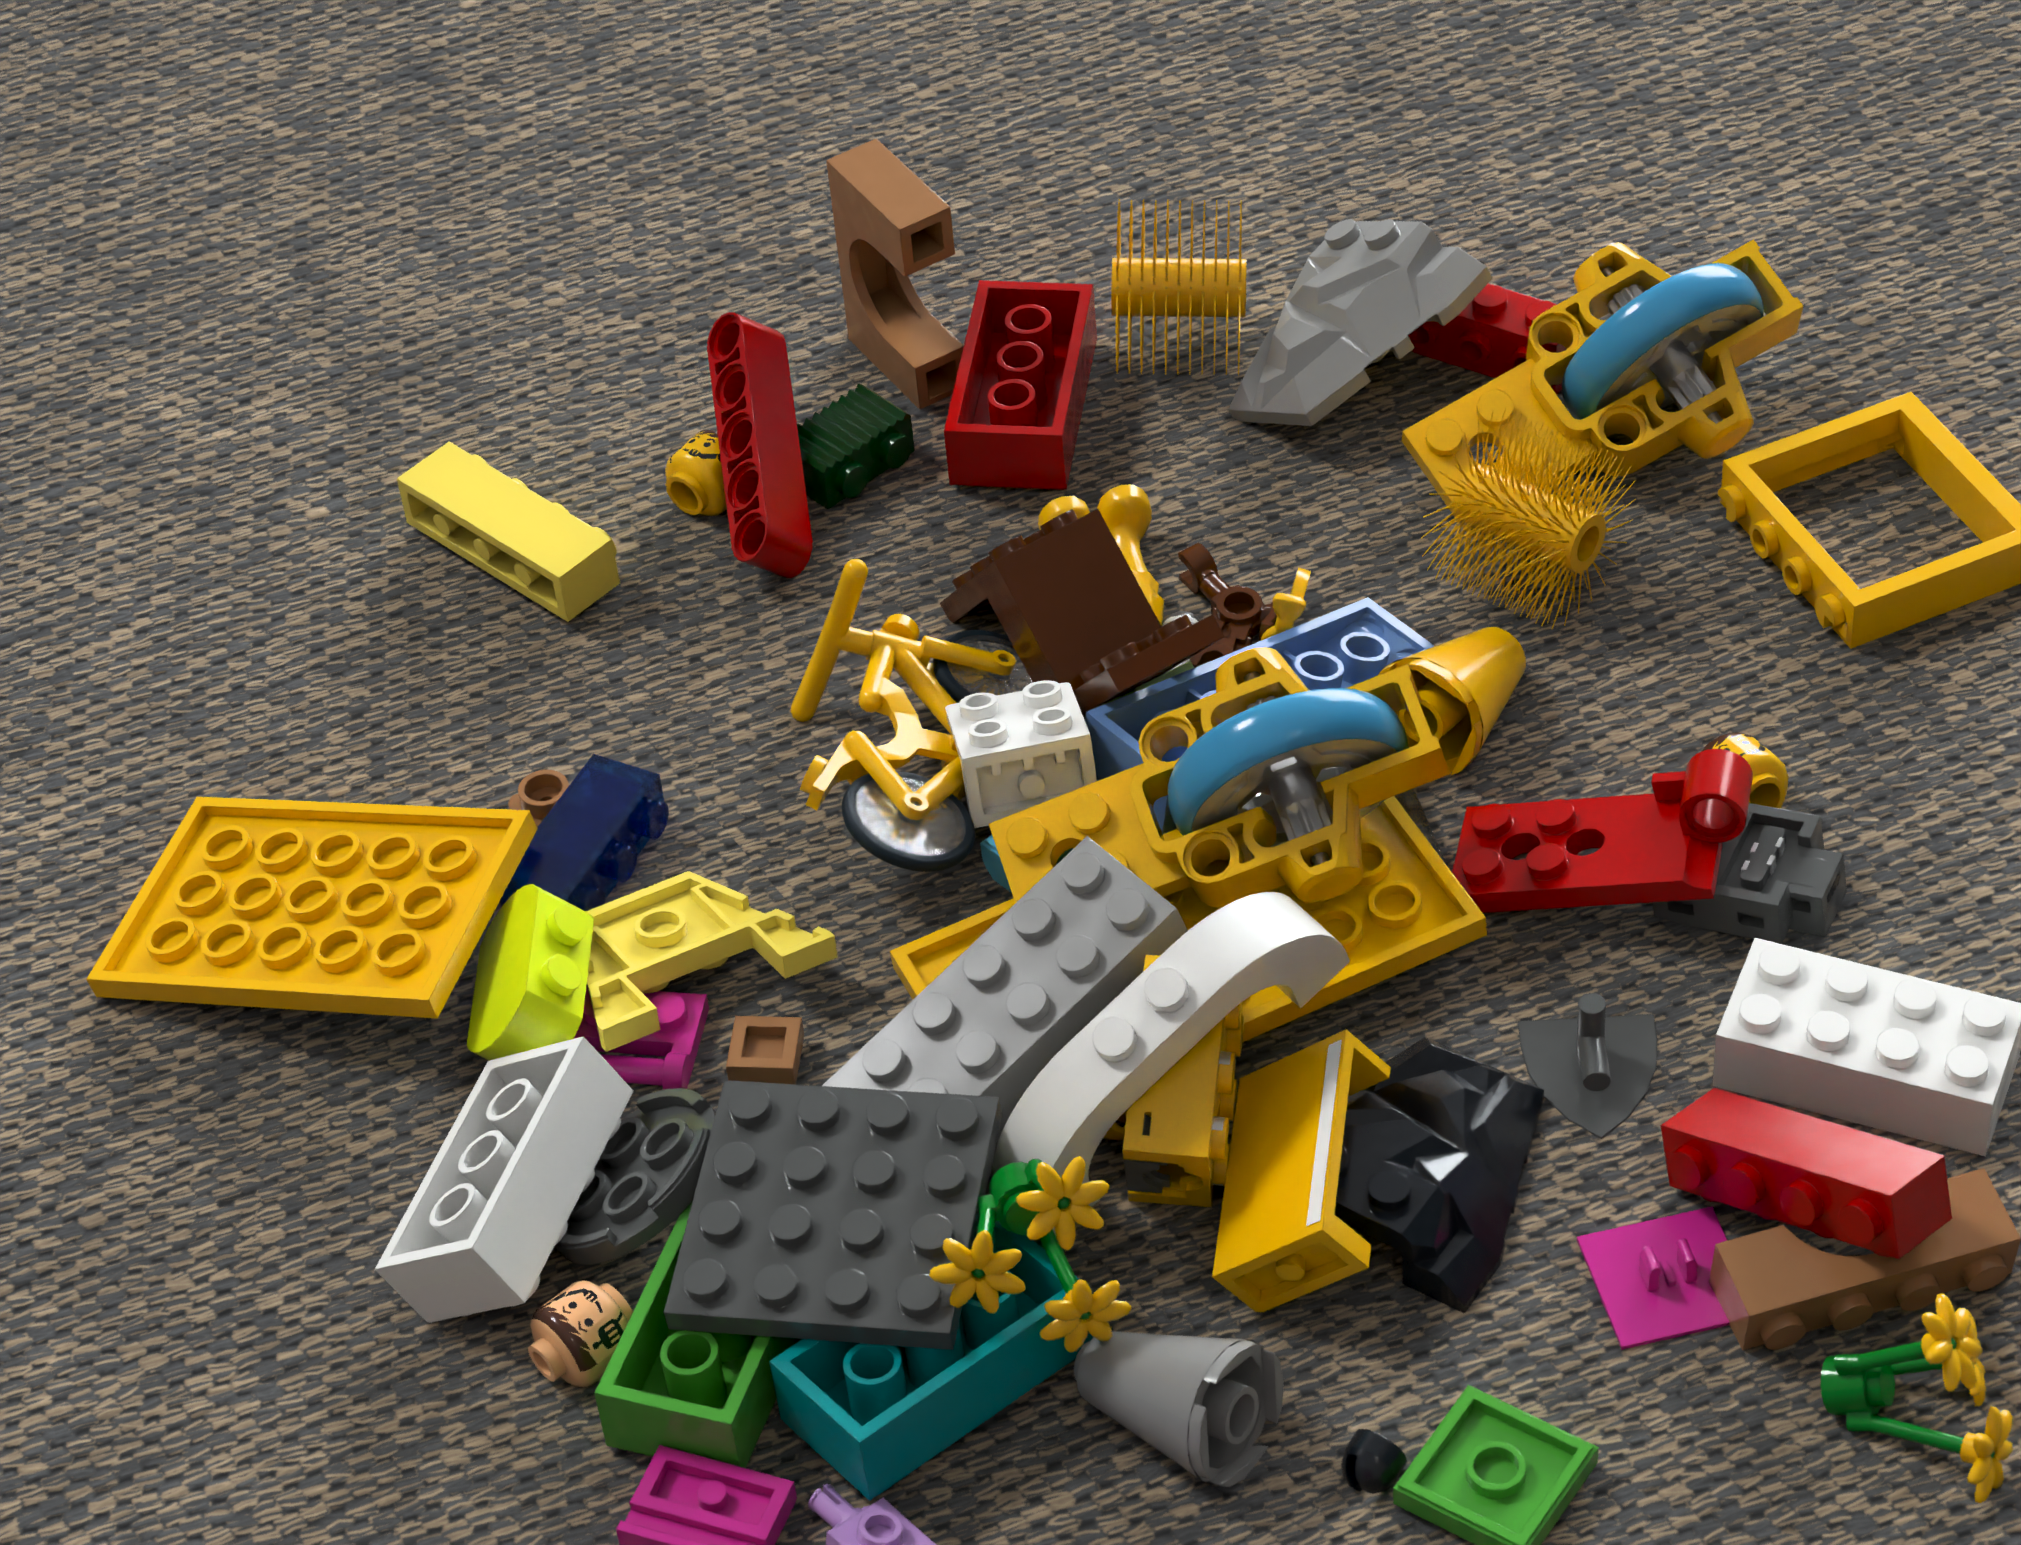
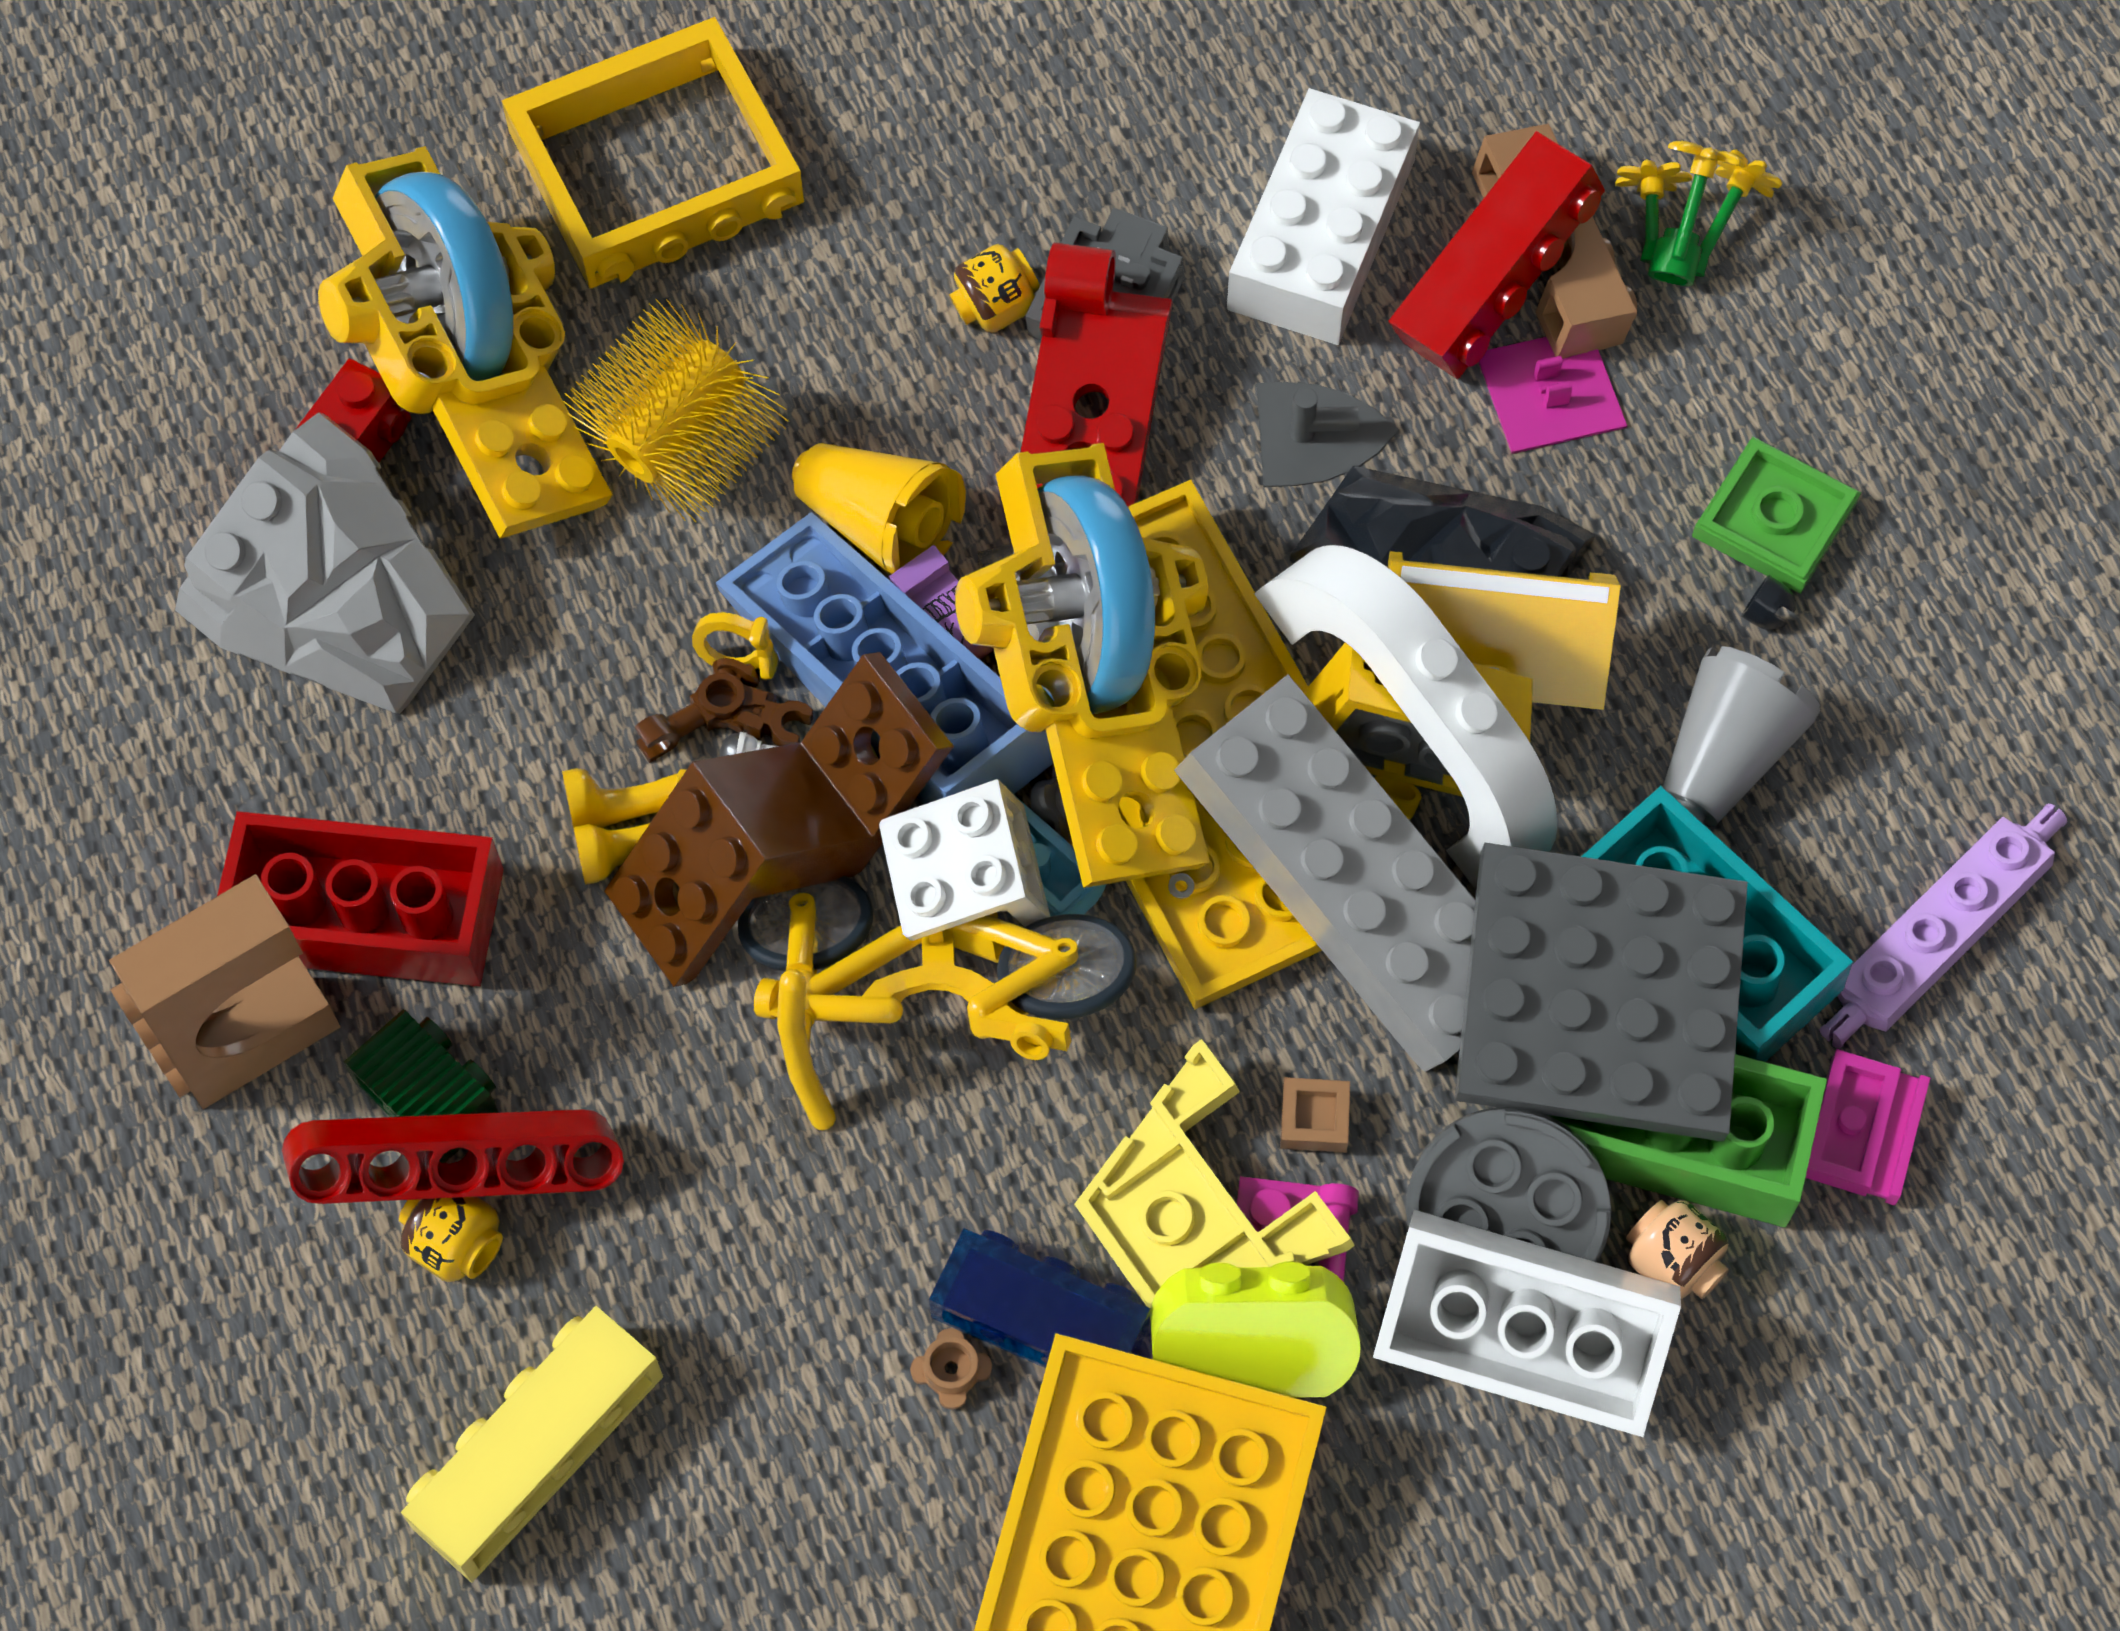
camera: 95 degrees left, 20 degrees up
(1031, 1203) = (1593, 827): yellow plant -> none
(1176, 287) = (259, 723): yellow piece -> none

